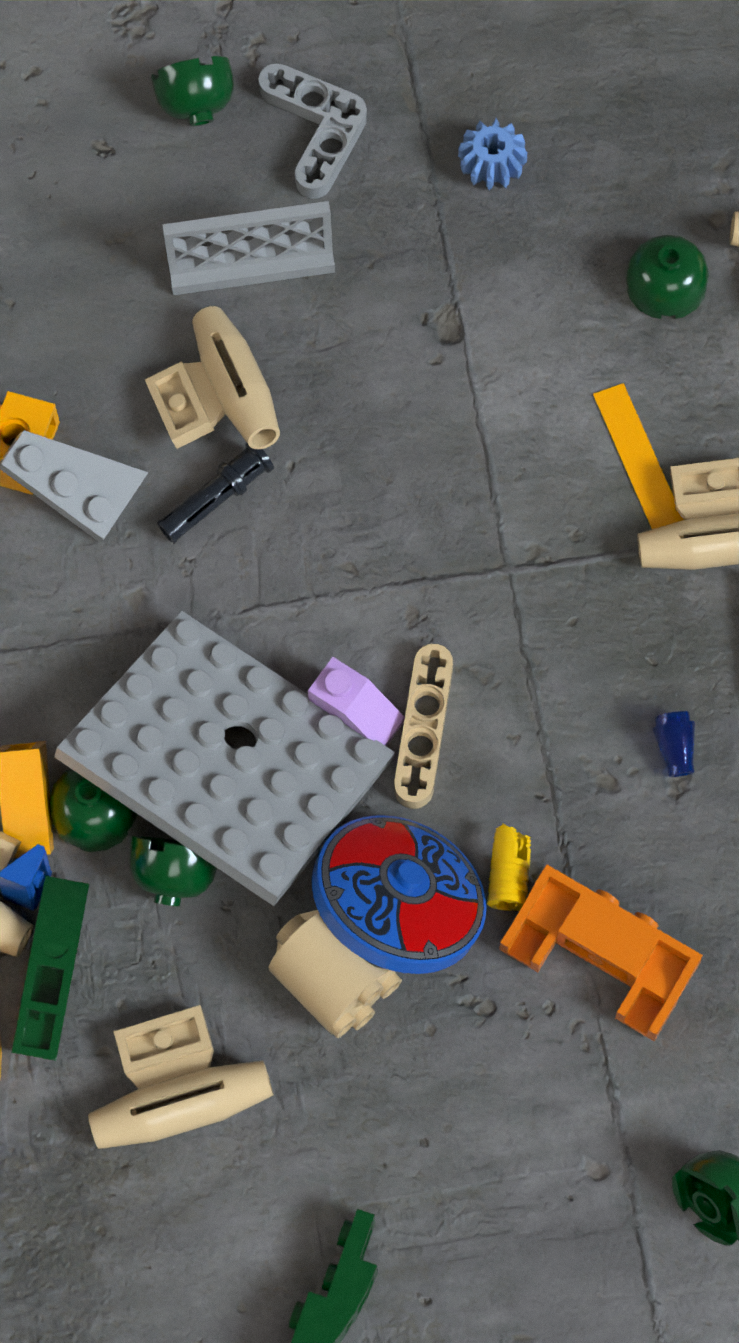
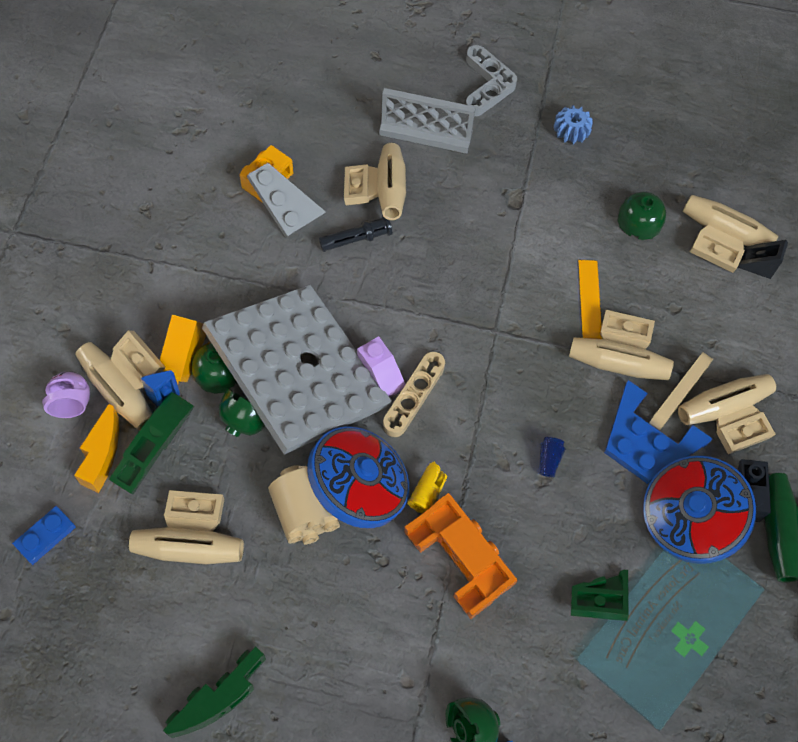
camera: 15 degrees right, 5 degrees down
(194, 89) = (433, 41): dark green cylinder -> none

